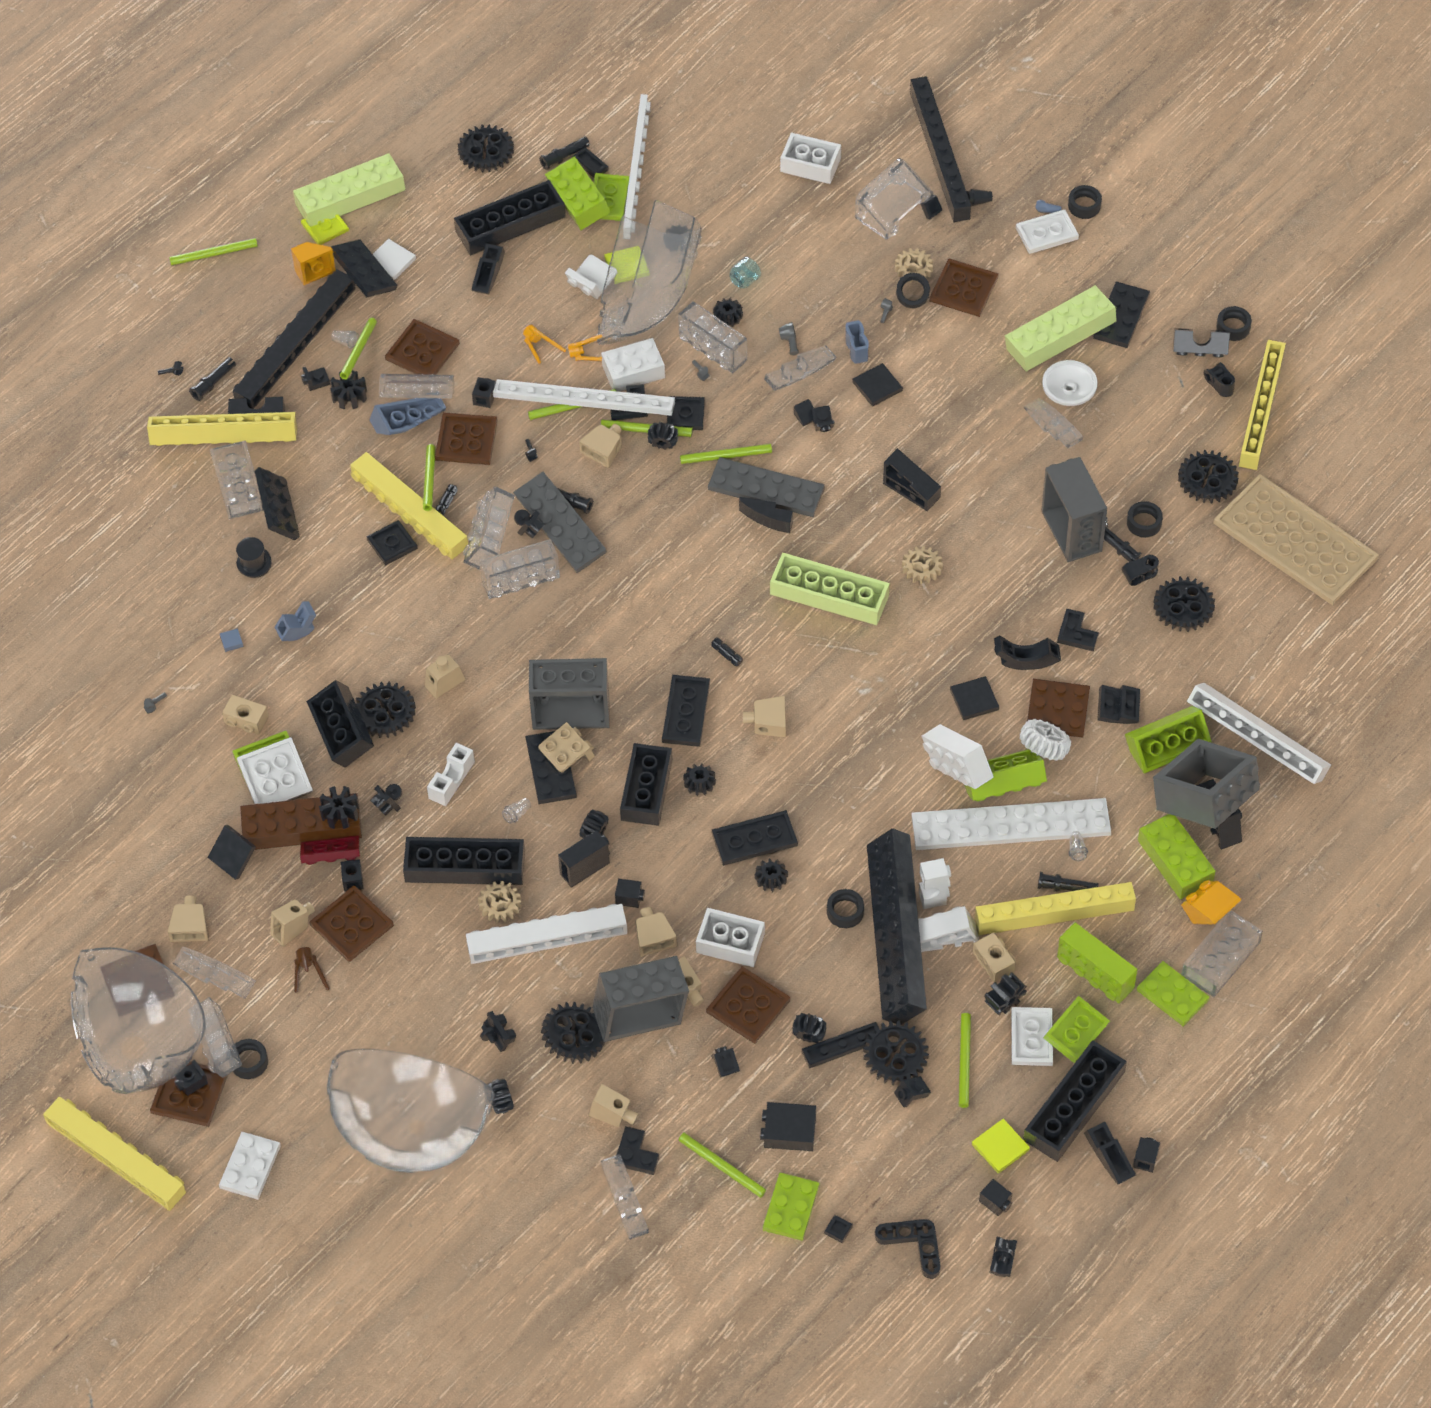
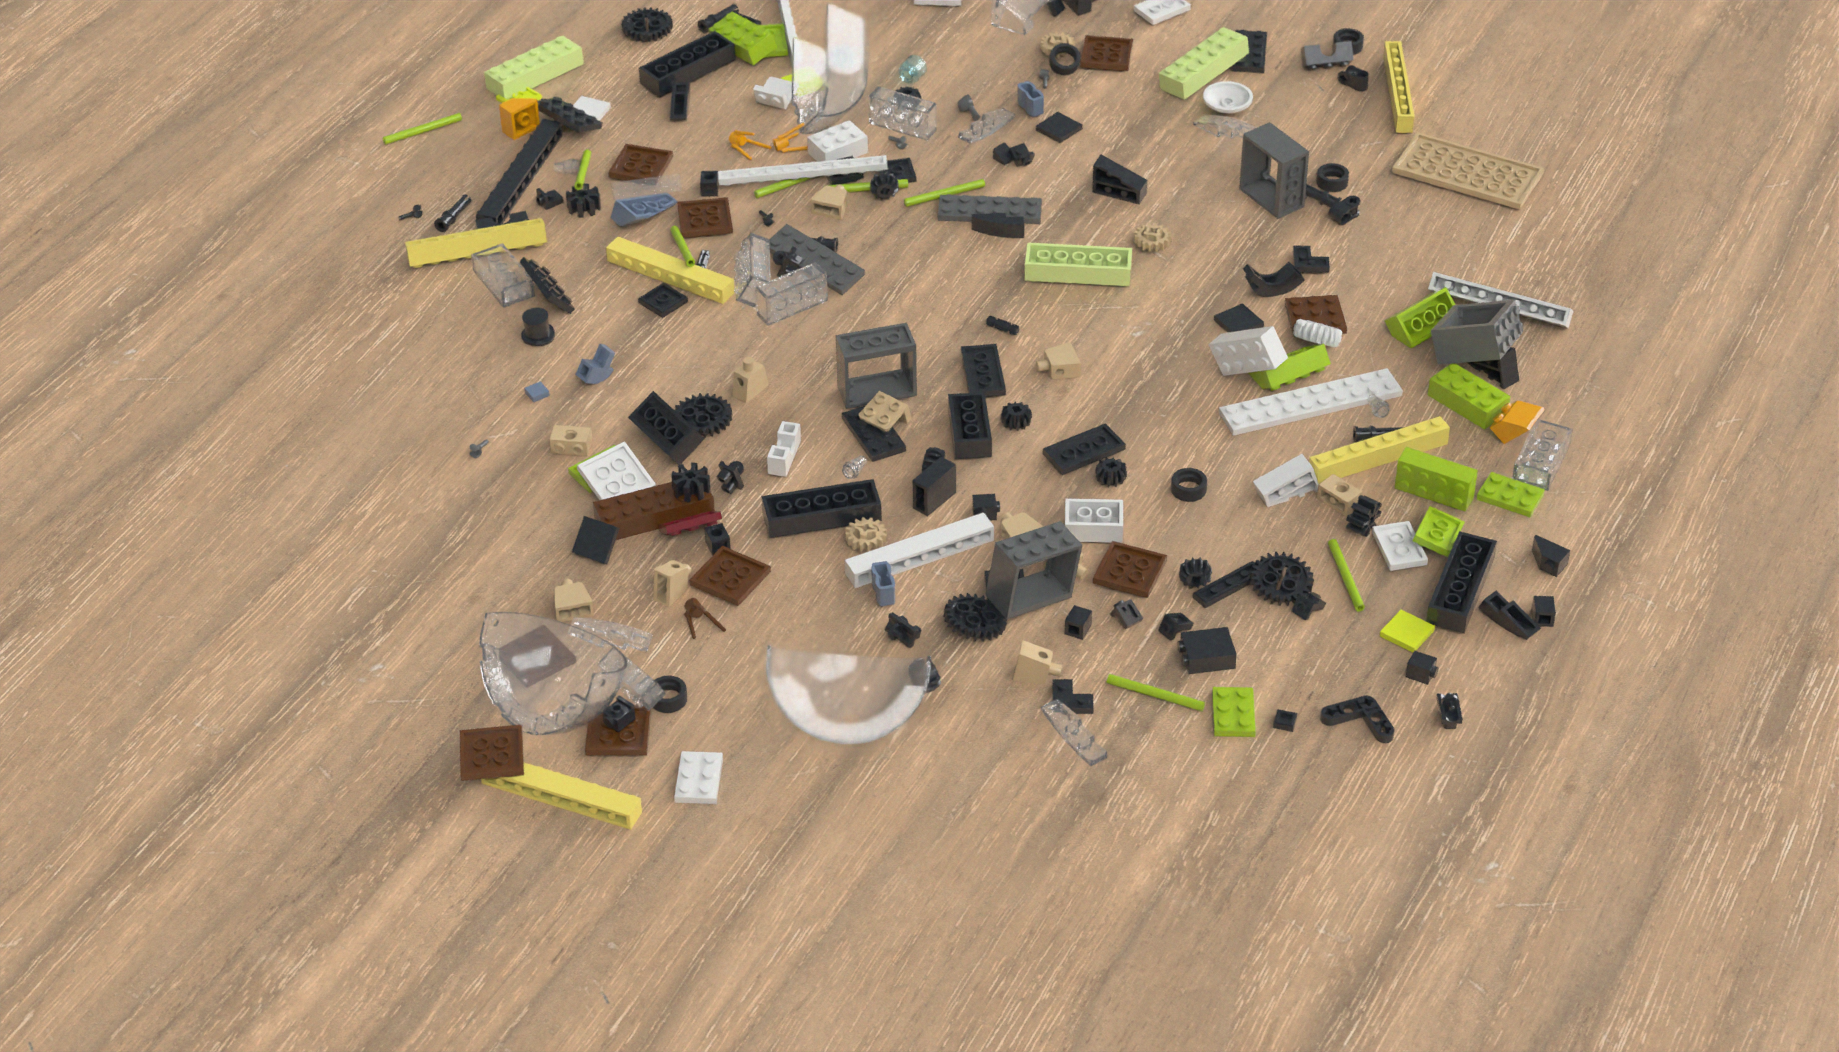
camera: 15 degrees left, 15 degrees down
(57, 1099) = (491, 752): none -> reddish brown plate
(495, 971) = (883, 583): none -> sand blue brick
(673, 1061) = (1078, 622): none -> black brick
(768, 1085) = (1173, 623): none -> black bracket
(896, 927) = (1244, 484): black brick -> none
(934, 884) = (1268, 437): white arch -> none
(1118, 704) = (1368, 305): black slope -> none
(1181, 1086) = (1550, 556): none -> black slope
(1184, 604) = (1393, 227): black gear -> none
(1197, 469) = (1386, 143): black gear -> none

